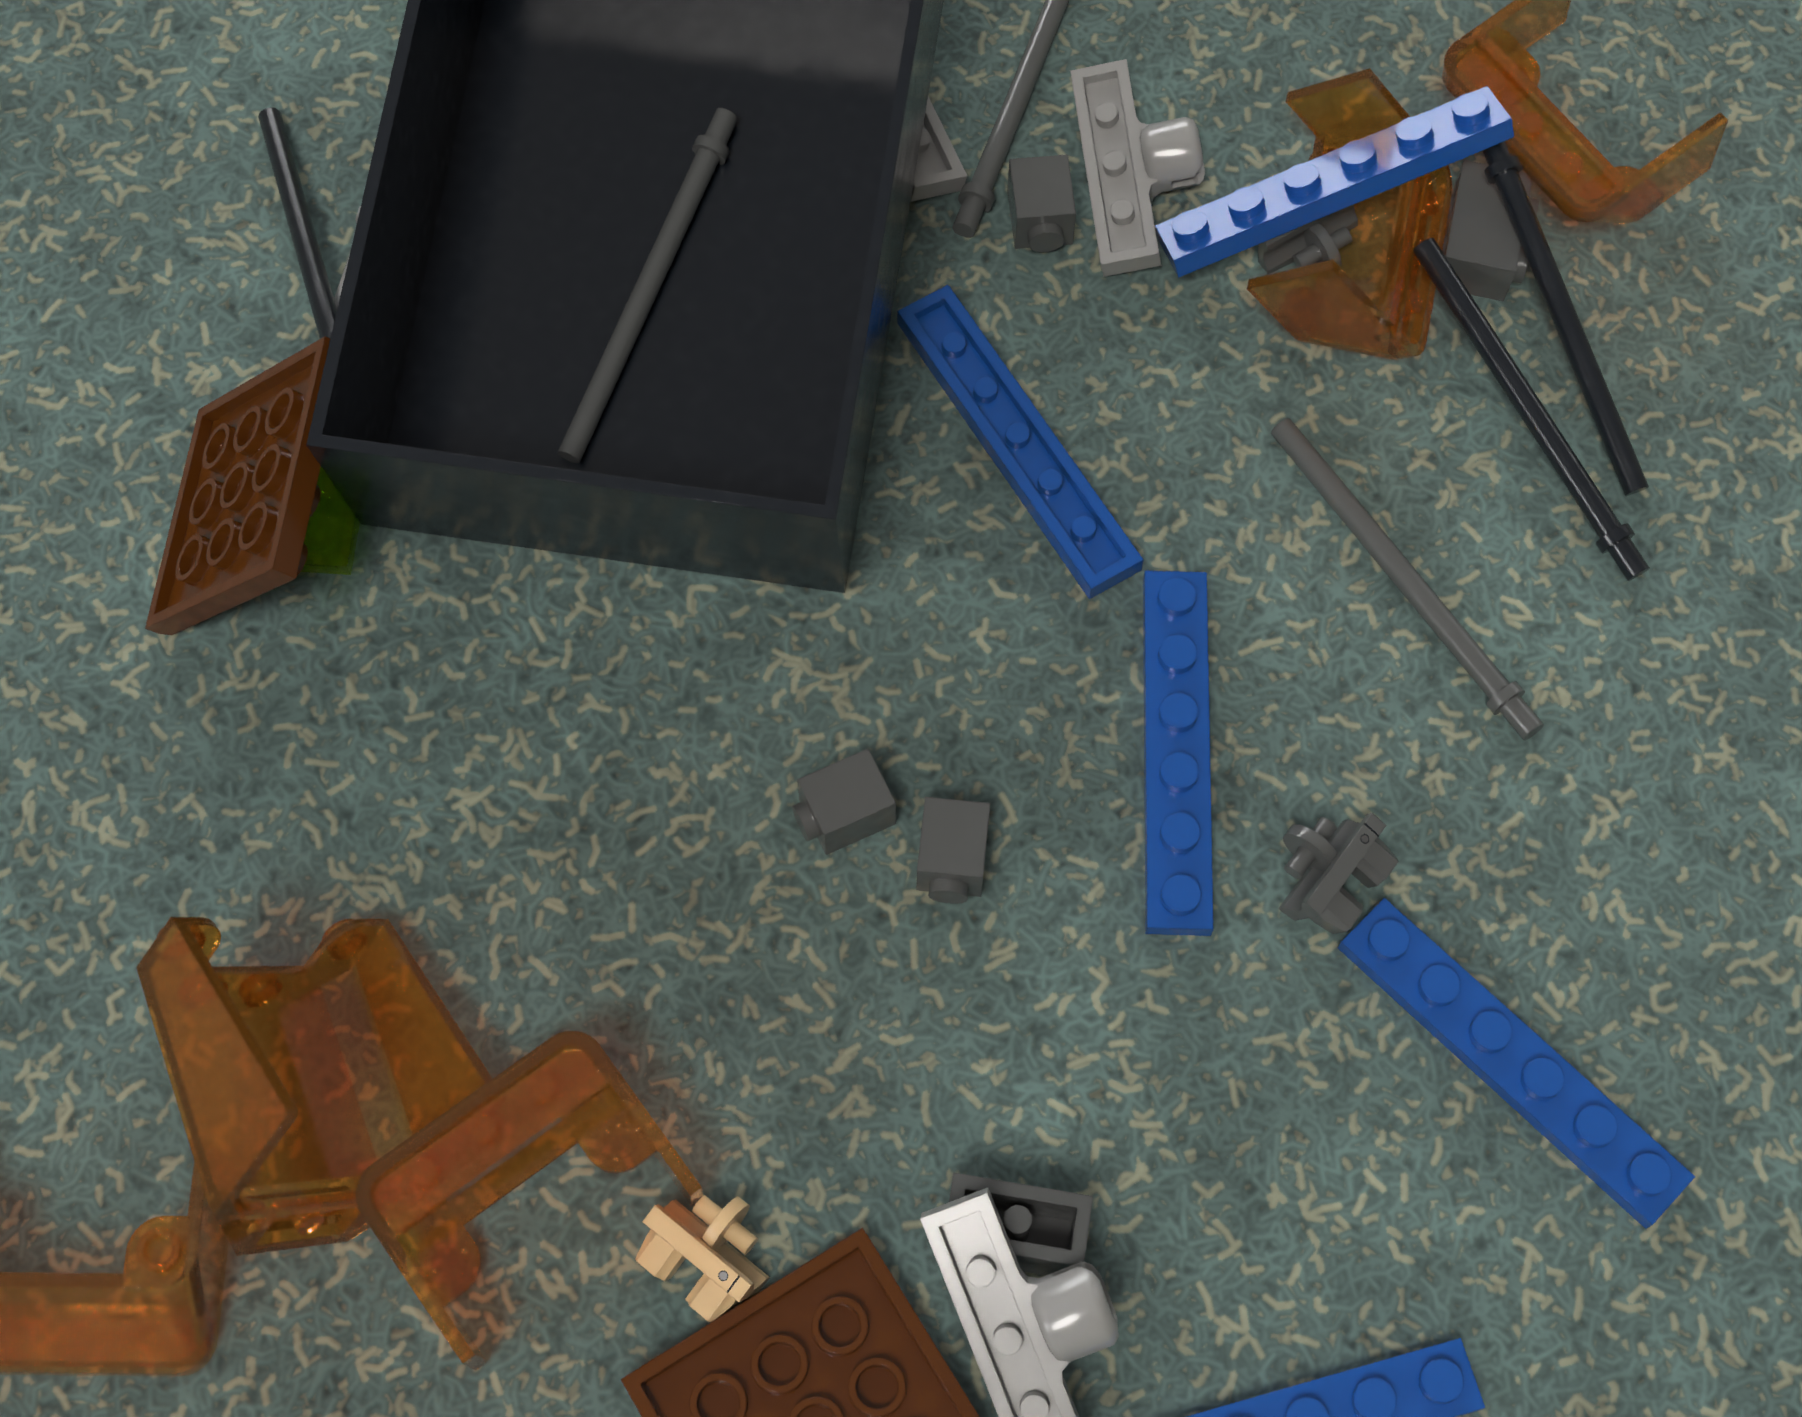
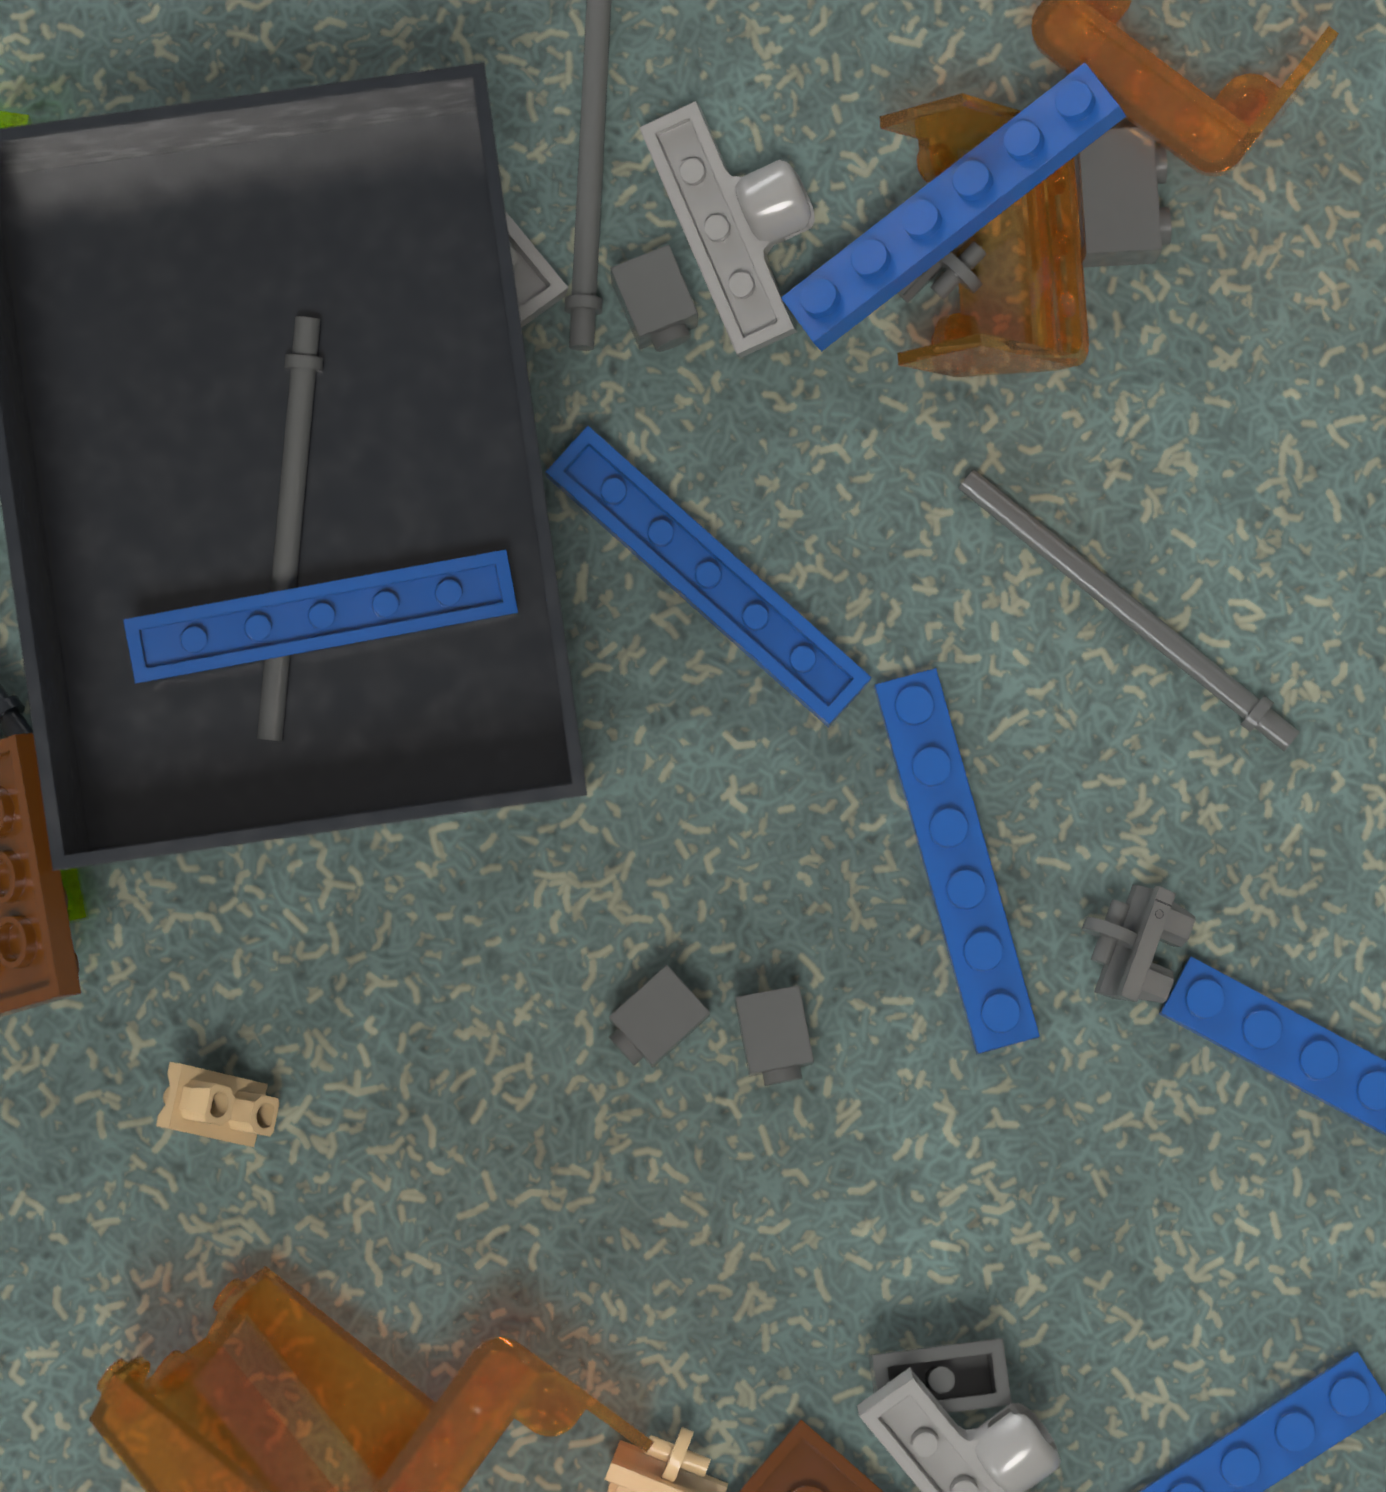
camera: 20 degrees left, 15 degrees up
(395, 755) = (217, 1105): none -> tan hips
(648, 352) = (320, 616): none -> blue plate
(1504, 171) = (1124, 144): black bar -> none
(1613, 536) = (1324, 507): black bar -> none

